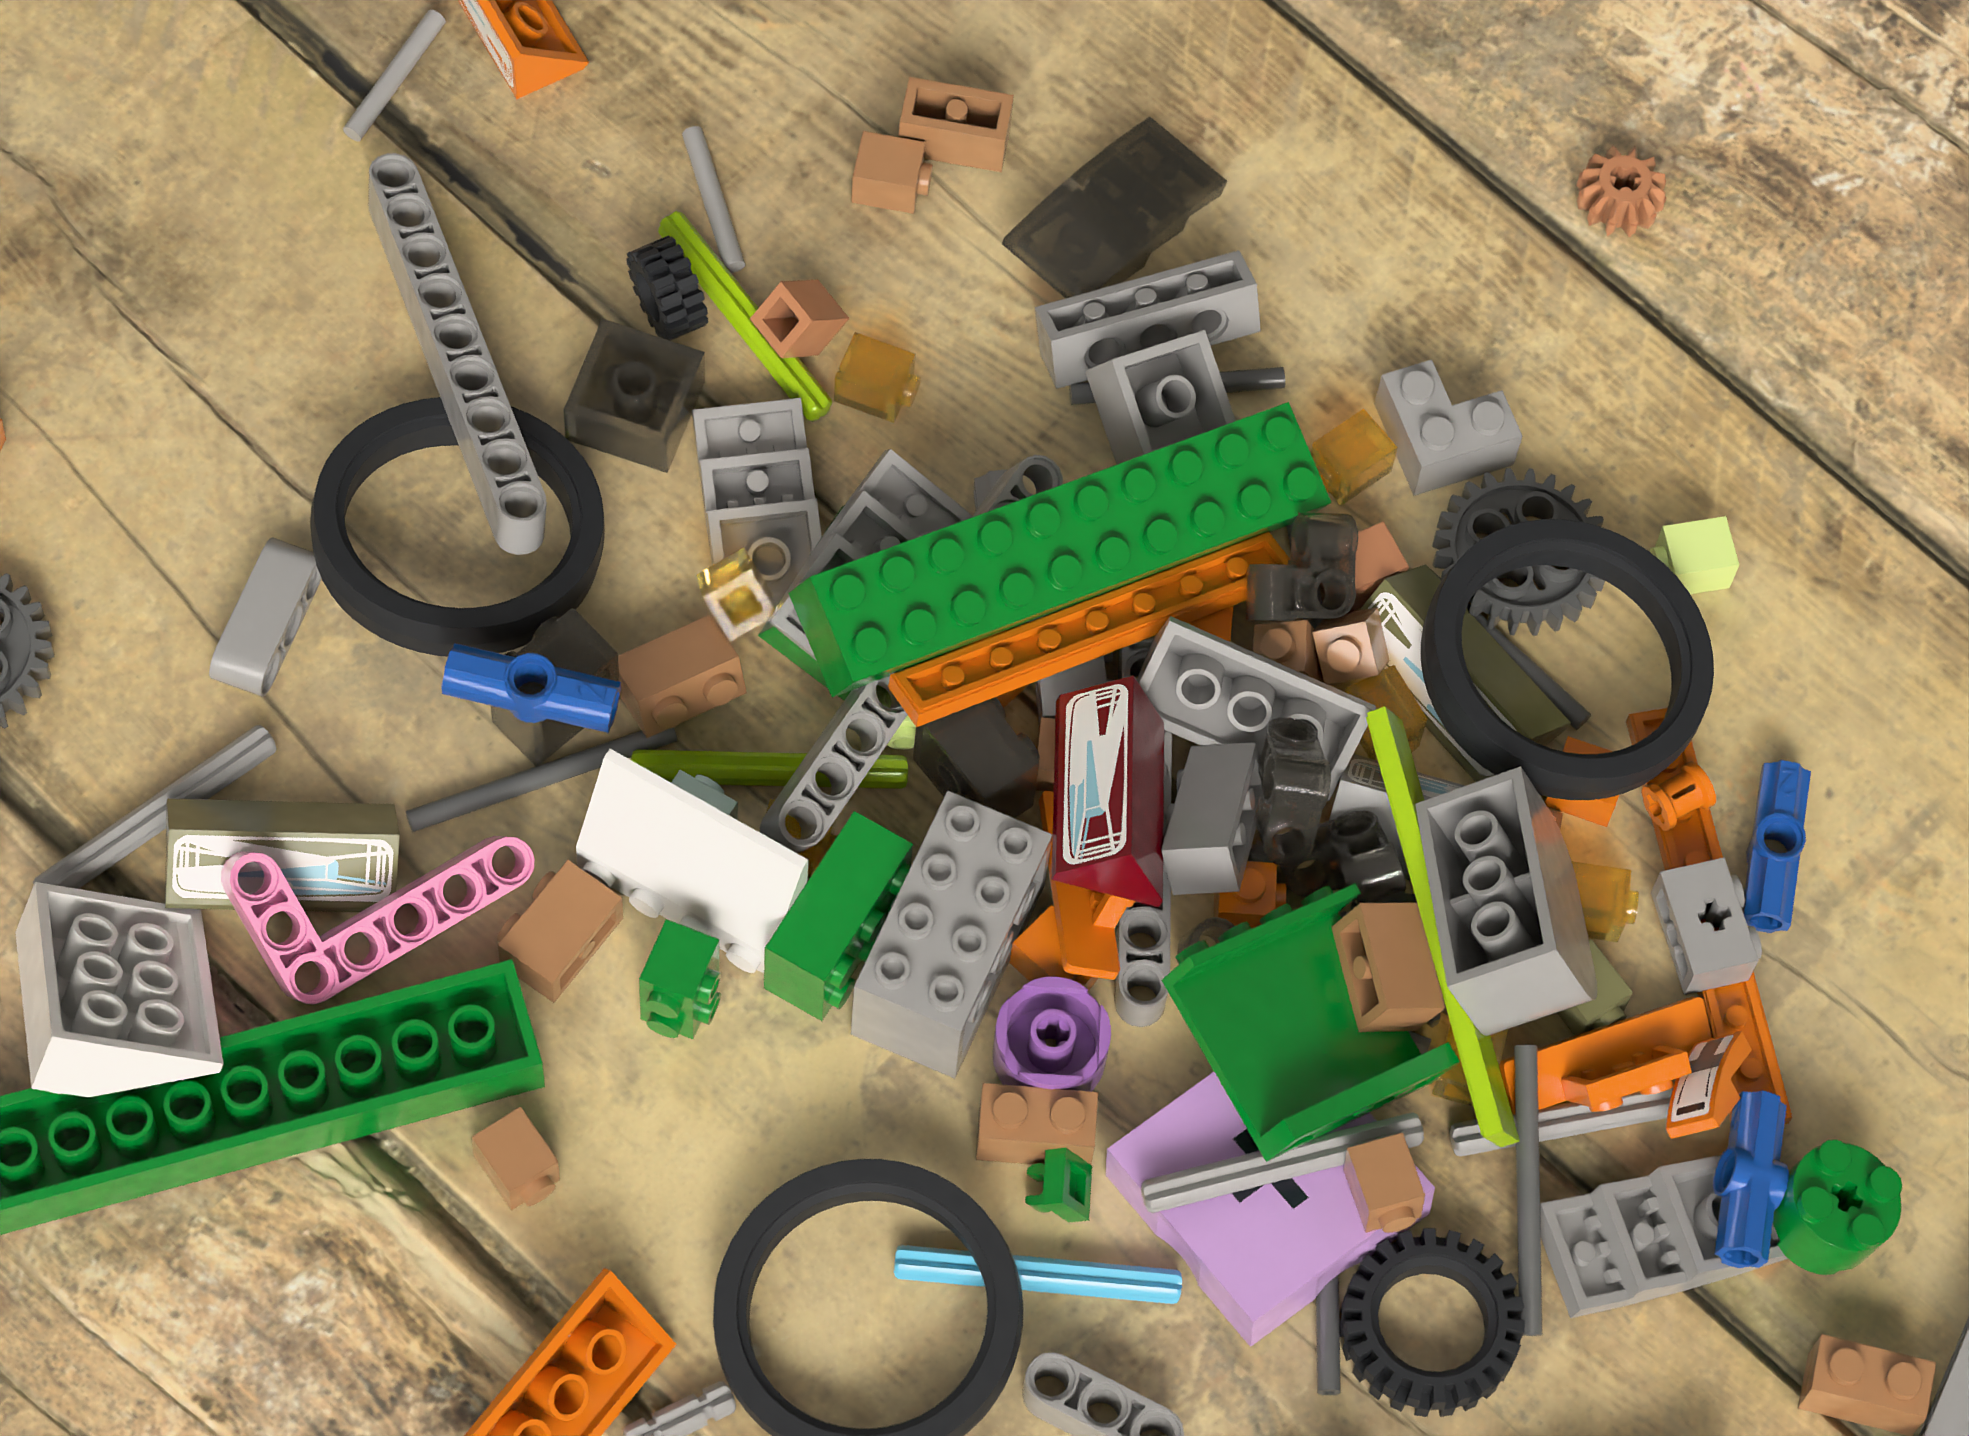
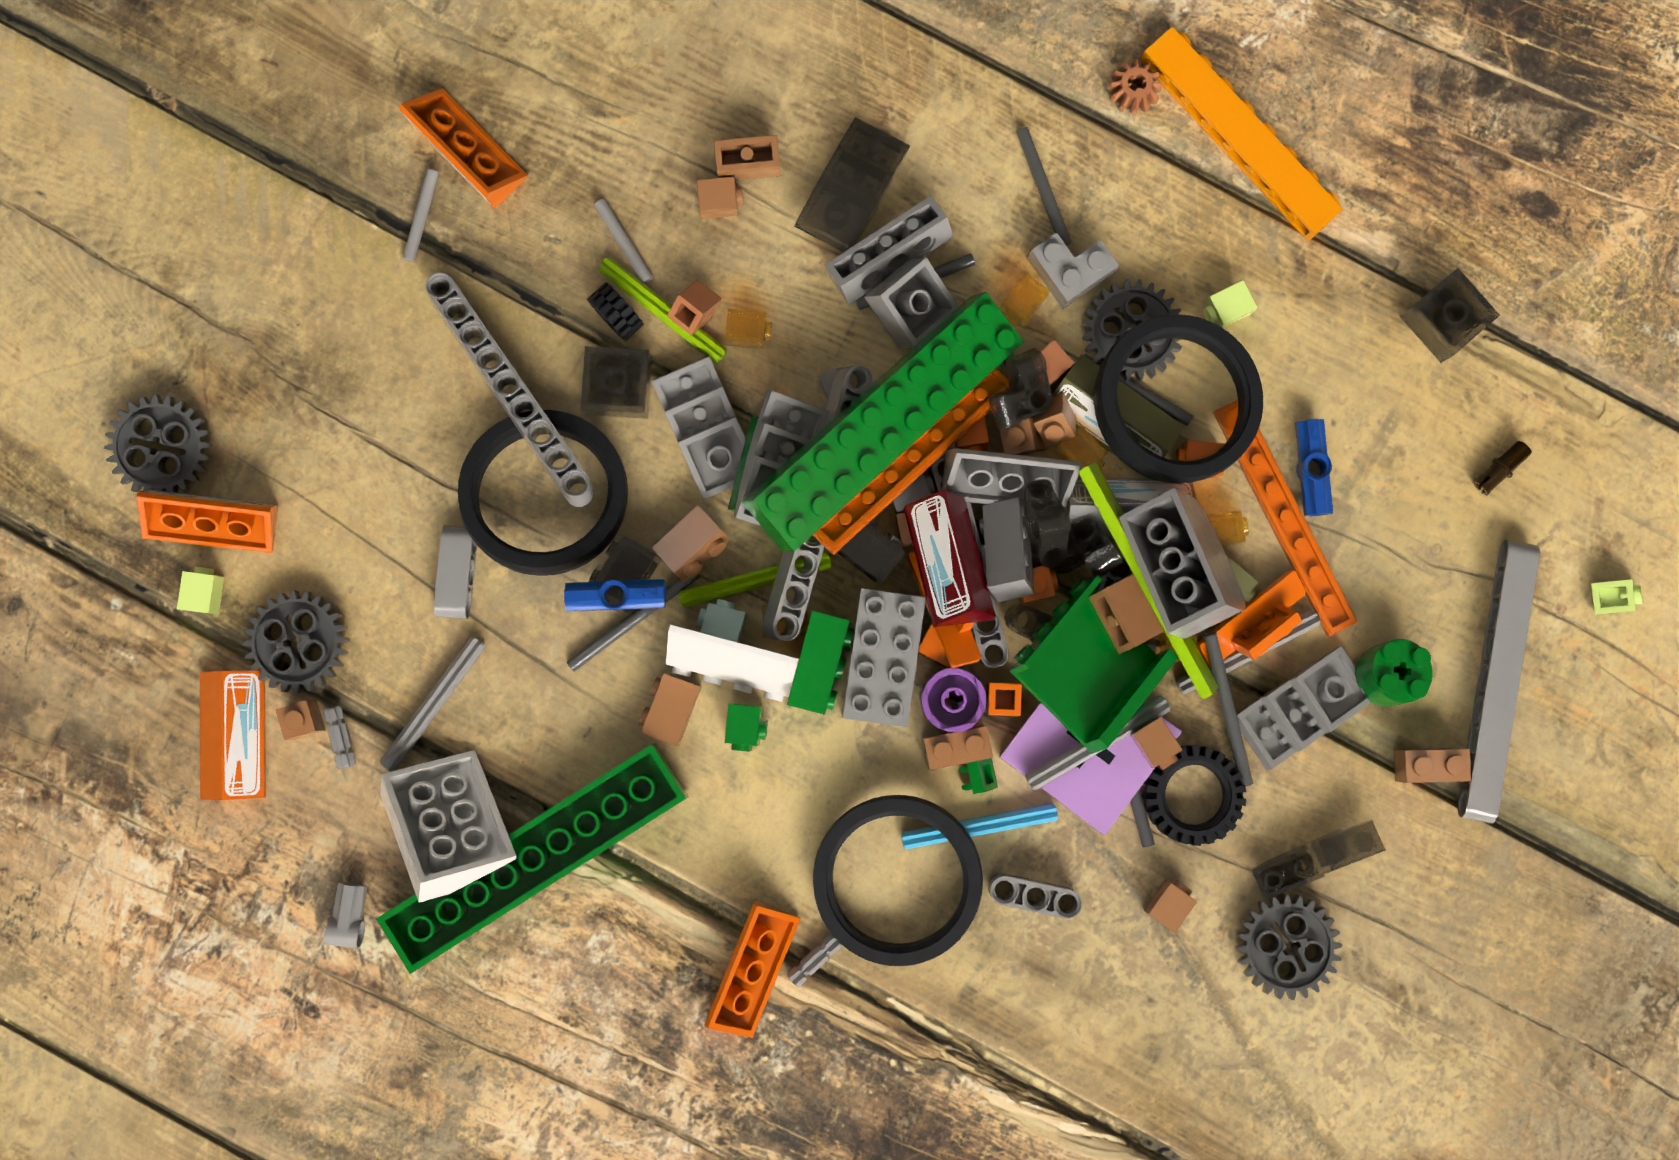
camera: 10 degrees left, 20 degrees up
(328, 852) = (506, 709): olive slope -> none
(374, 922) = (568, 736): bright pink beam -> none
(516, 1160) = (687, 846): medium nougat brick -> none
(736, 594) = (709, 491): clear yellow brick -> none
(1139, 1065) = (1003, 699): none -> orange brick
(1431, 294) = (1043, 184): none -> dark grey bar
(1692, 782) = (1256, 456): orange bush -> none
(1700, 954) = (1276, 518): light grey brick -> none
(1707, 1094) = (1313, 633): slope -> none
(1750, 1180) = (1346, 671): blue piece -> none
(1782, 309) = (1241, 134): none -> light orange brick

